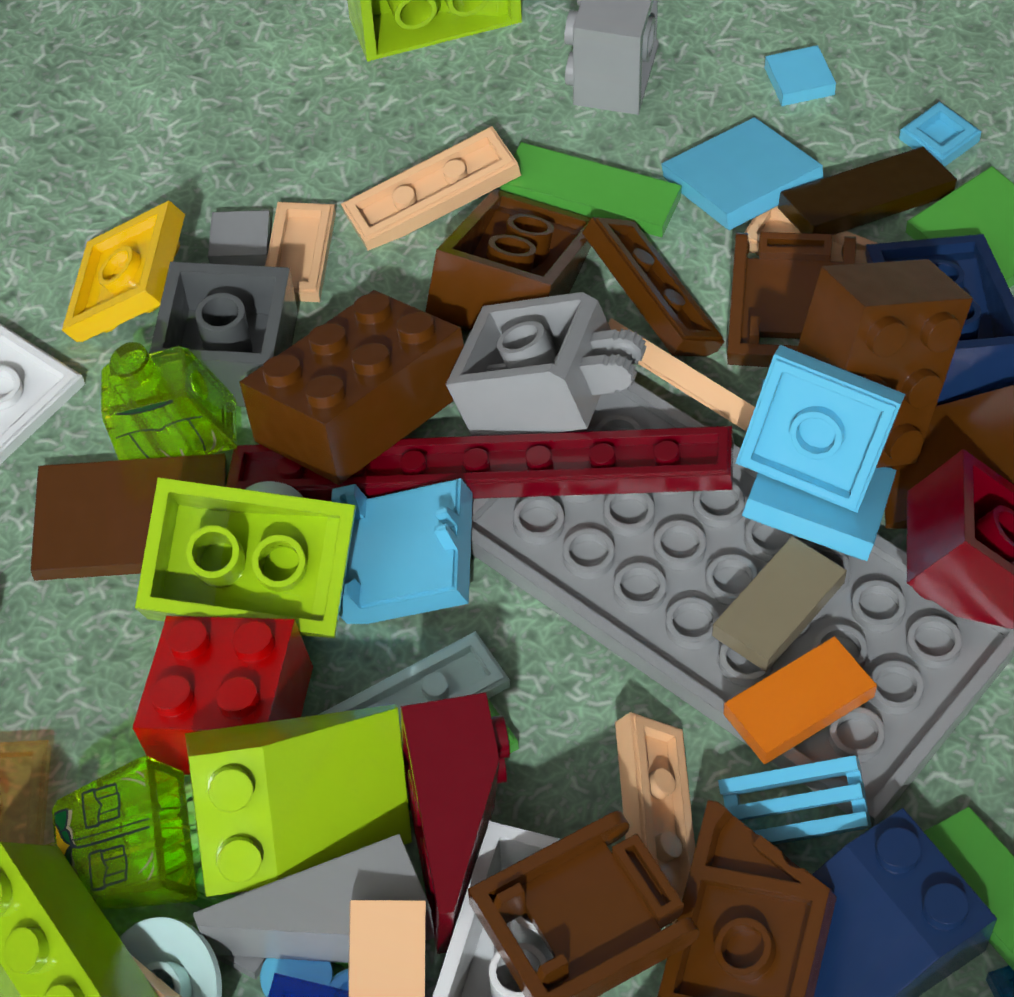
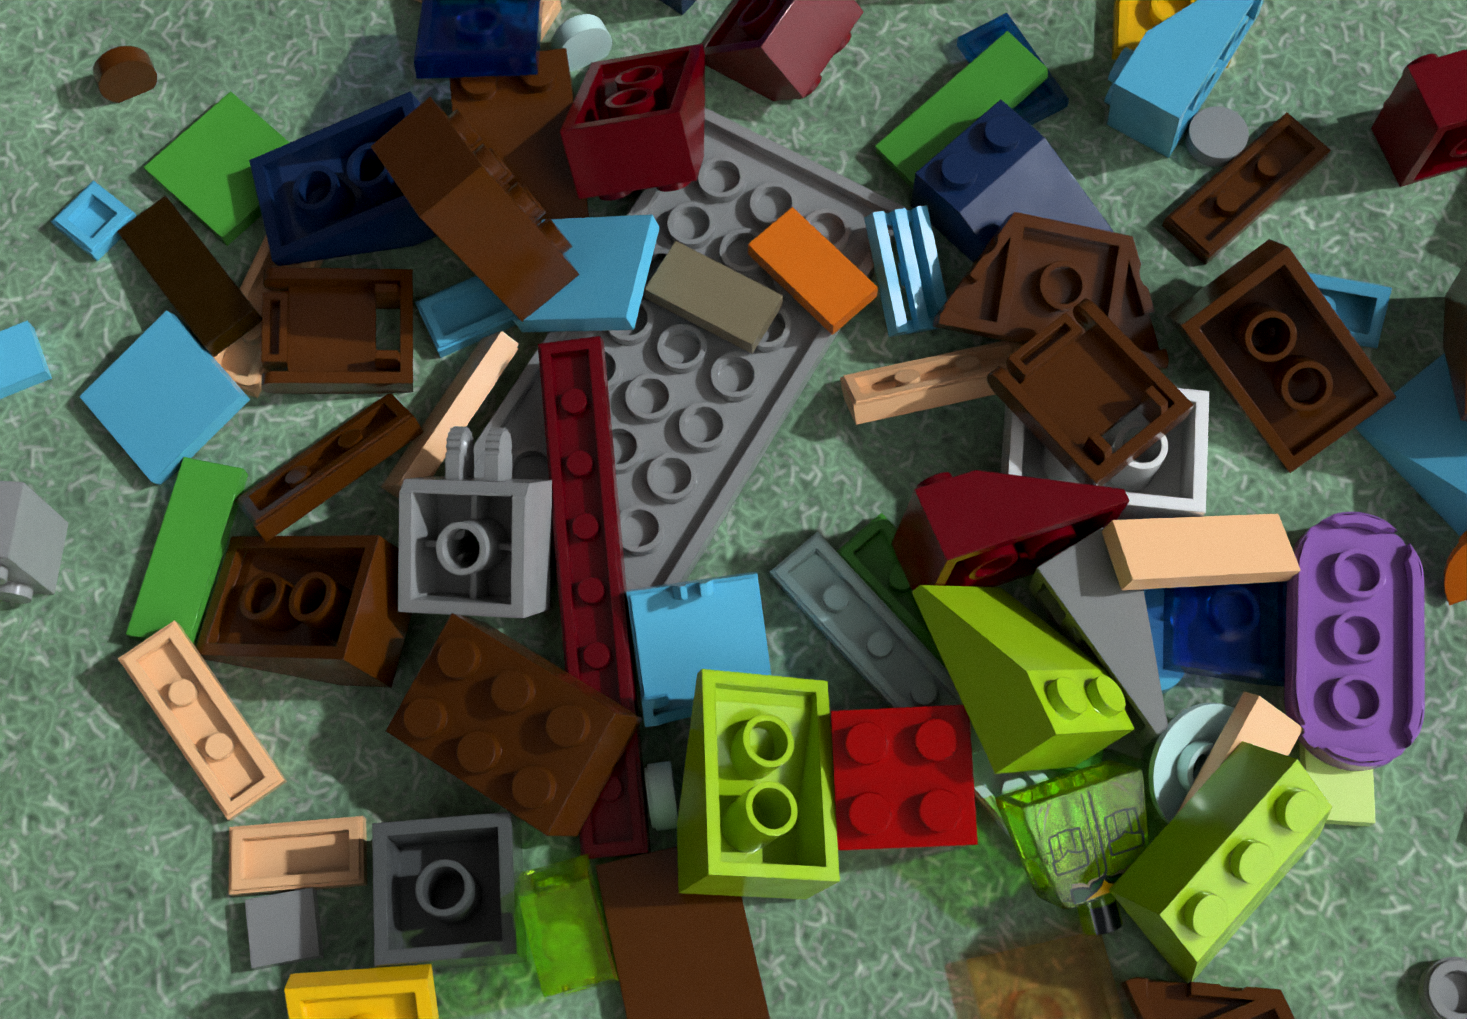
camera: 100 degrees left, 15 degrees up
(819, 428) = (558, 247): medium azure tile -> none

